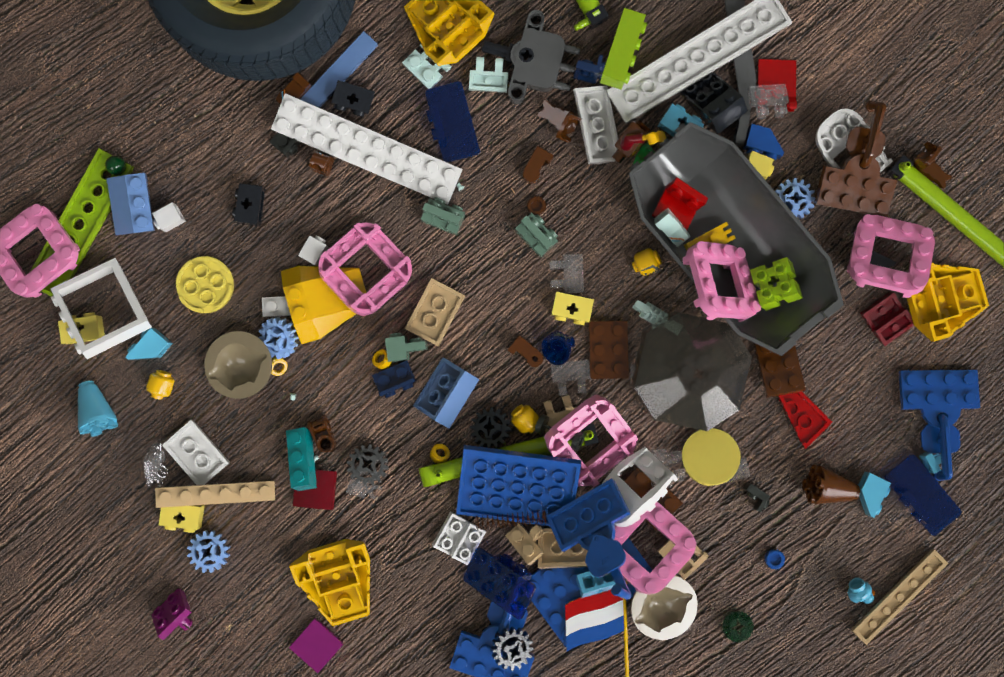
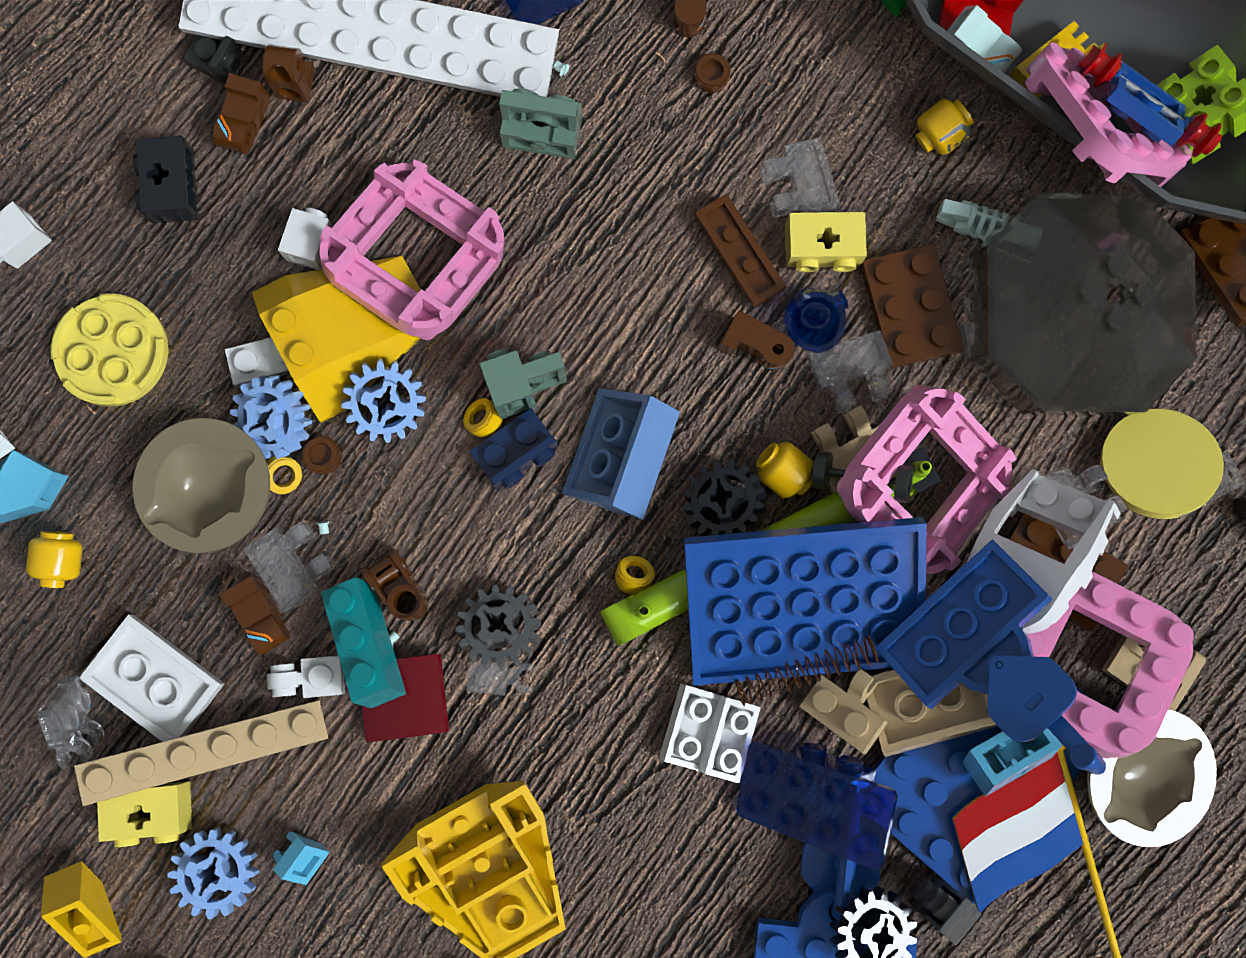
camera: 20 degrees left, 5 degrees down
(142, 554) = (79, 909): none -> yellow slope
(250, 554) = (300, 859): none -> medium azure tile
(252, 433) = (256, 614): none -> reddish brown leg
(269, 414) = (282, 569): none -> clear plate
(276, 469) = (318, 678): none -> white plate
(292, 179) = (241, 114): none -> reddish brown leg
(299, 360) = (321, 455): none -> reddish brown tile
(328, 337) = (400, 406): none -> light blue gear
(435, 312) = (565, 304): tan plate -> none
(528, 303) = (739, 251): none -> reddish brown plate
(533, 226) = (715, 99): sand green brick -> none
(550, 646) = (945, 908): none -> dark grey slope
(739, 282) = (1148, 104): none -> plate

